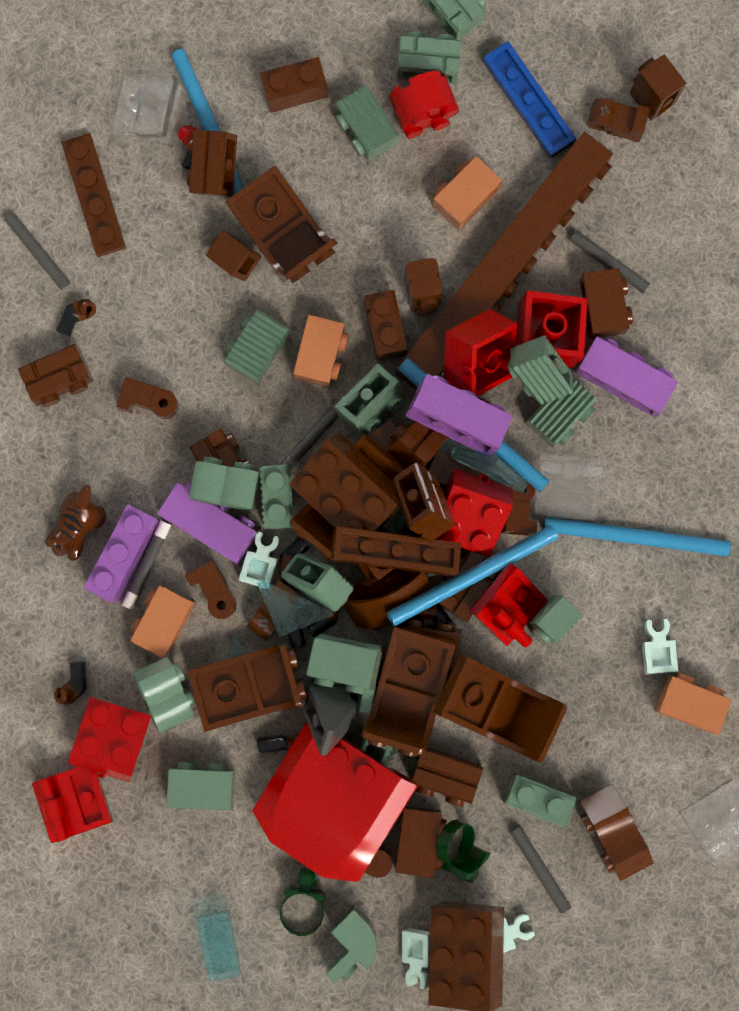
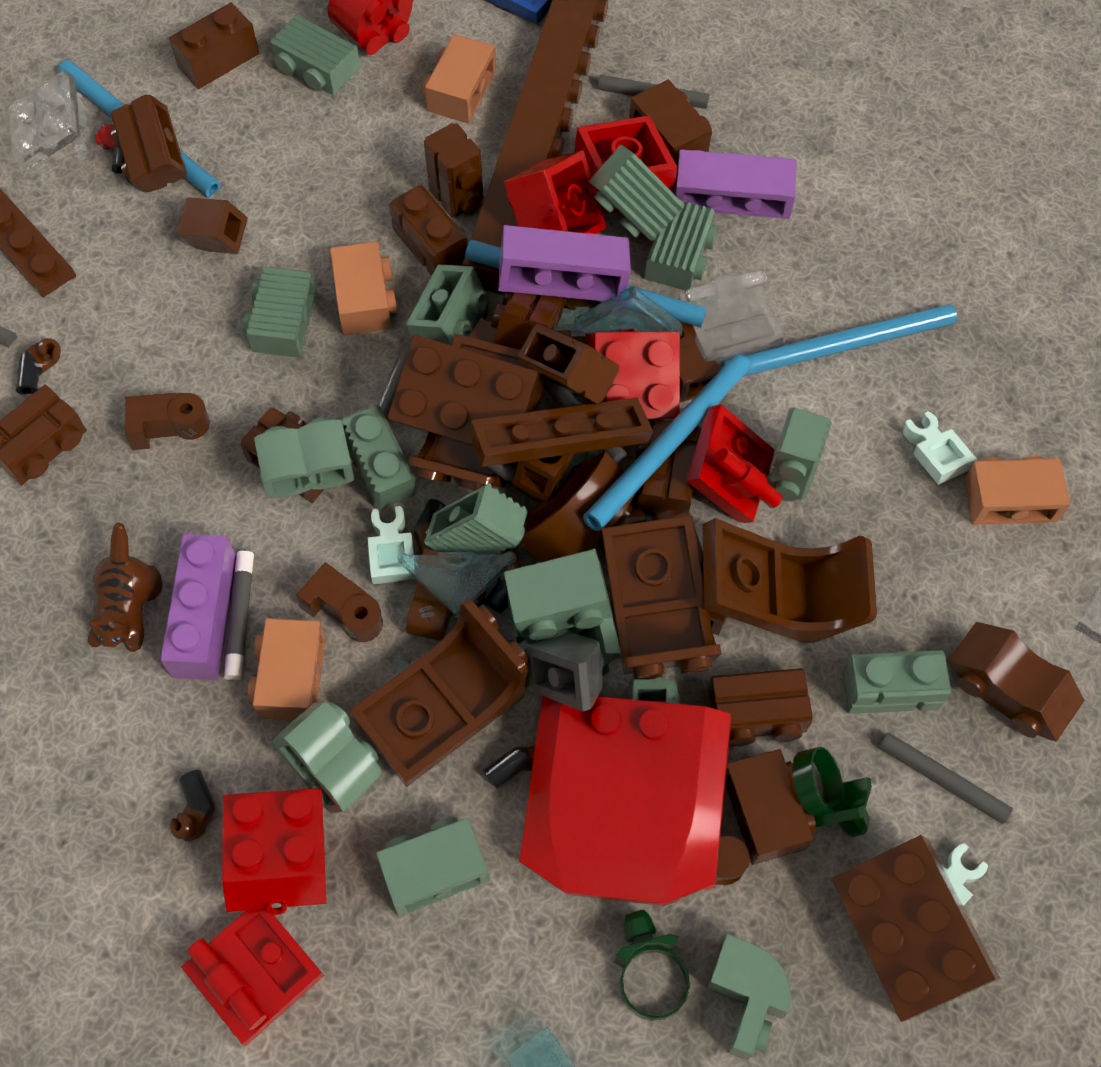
camera: 25 degrees left, 20 degrees down
(209, 523) = (302, 527): medium lavender brick -> none
(280, 226) = (259, 178): reddish brown bracket -> none
(417, 954) = (845, 962): light aqua plate -> none

